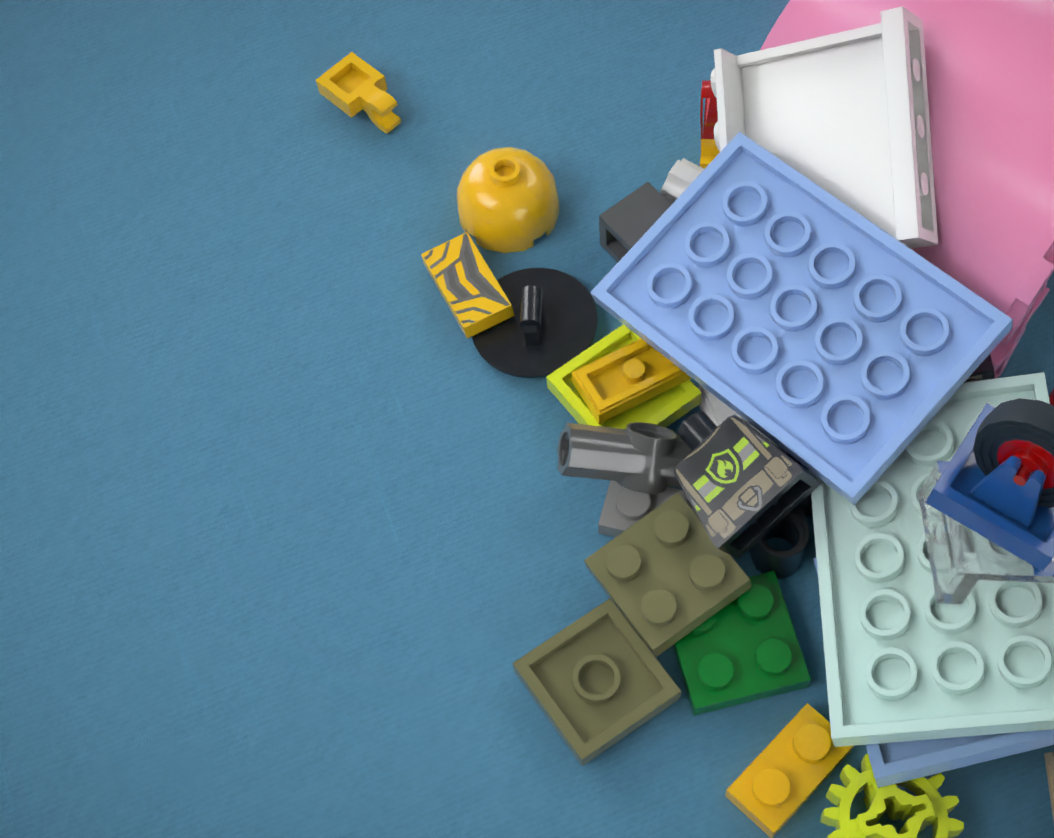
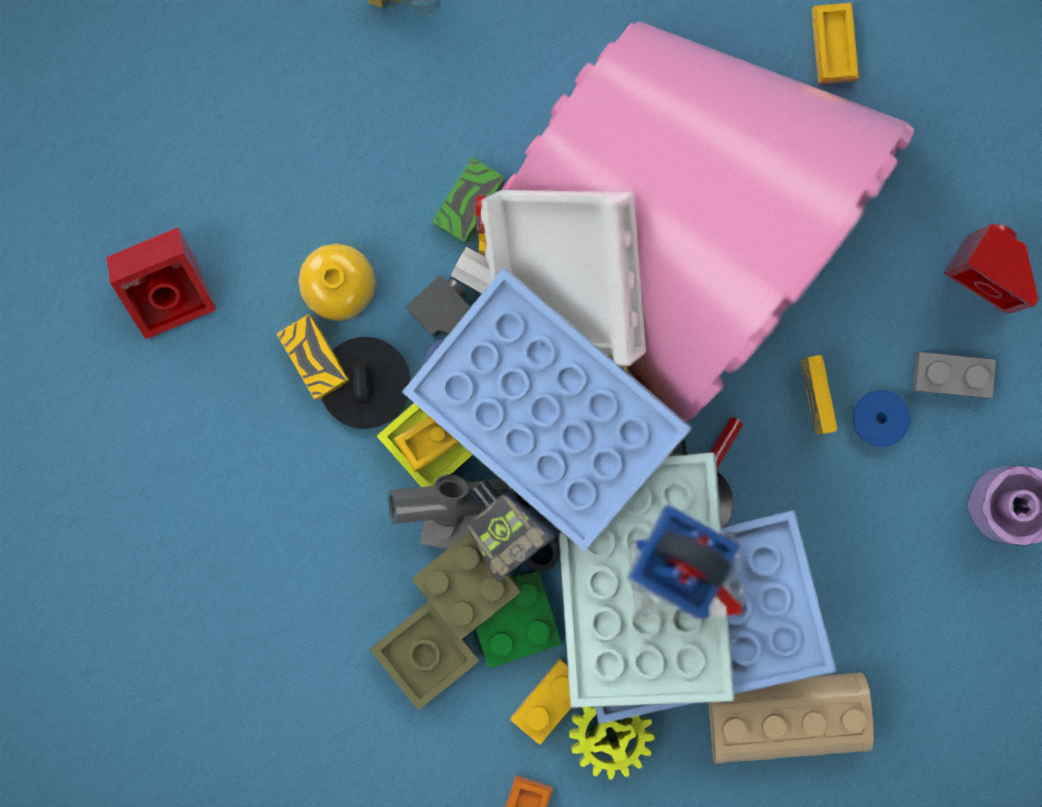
camera: 20 degrees left, 25 degrees up
(278, 191) = (160, 283): none -> red slope
(359, 86) = (210, 183): yellow plate -> none
(677, 127) = (459, 208): none -> tile

